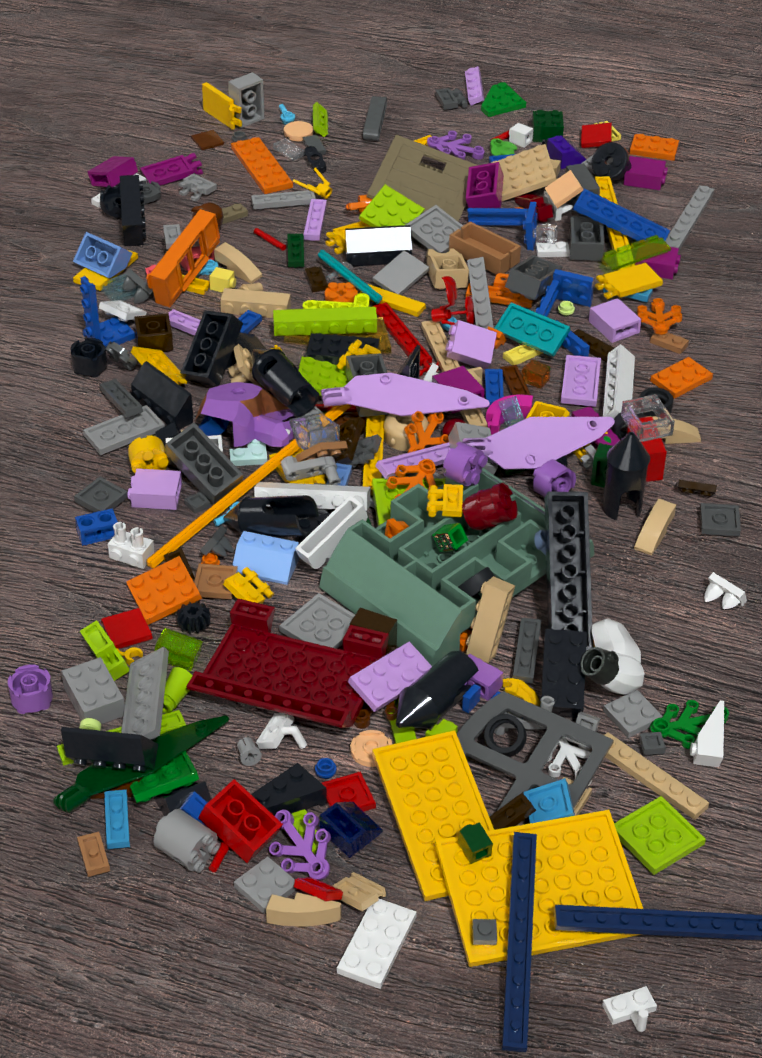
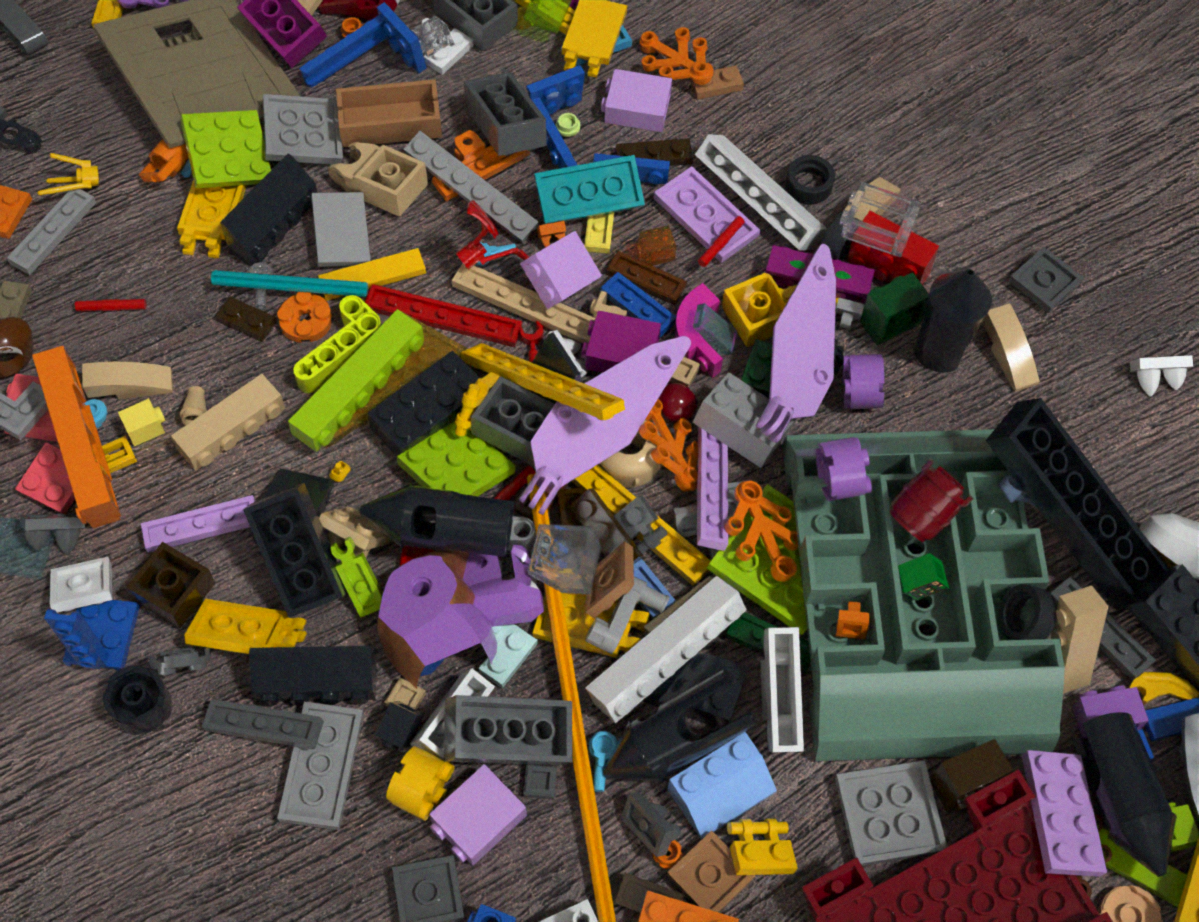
camera: 50 degrees left, 20 degrees up
(226, 373) = (358, 579): none -> lime plate
(249, 320) = (253, 463): blue plate -> none
(295, 250) = (168, 296): dark green plate -> none
(315, 219) = (131, 229): lavender plate -> none
(393, 364) = (544, 381): none -> yellow plate
(452, 500) = (878, 528): yellow plate -> none
(568, 389) = (721, 241): none -> red piece
(681, 377) = (786, 122): orange plate -> none
(689, 486) = (981, 255): dark brown plate -> none

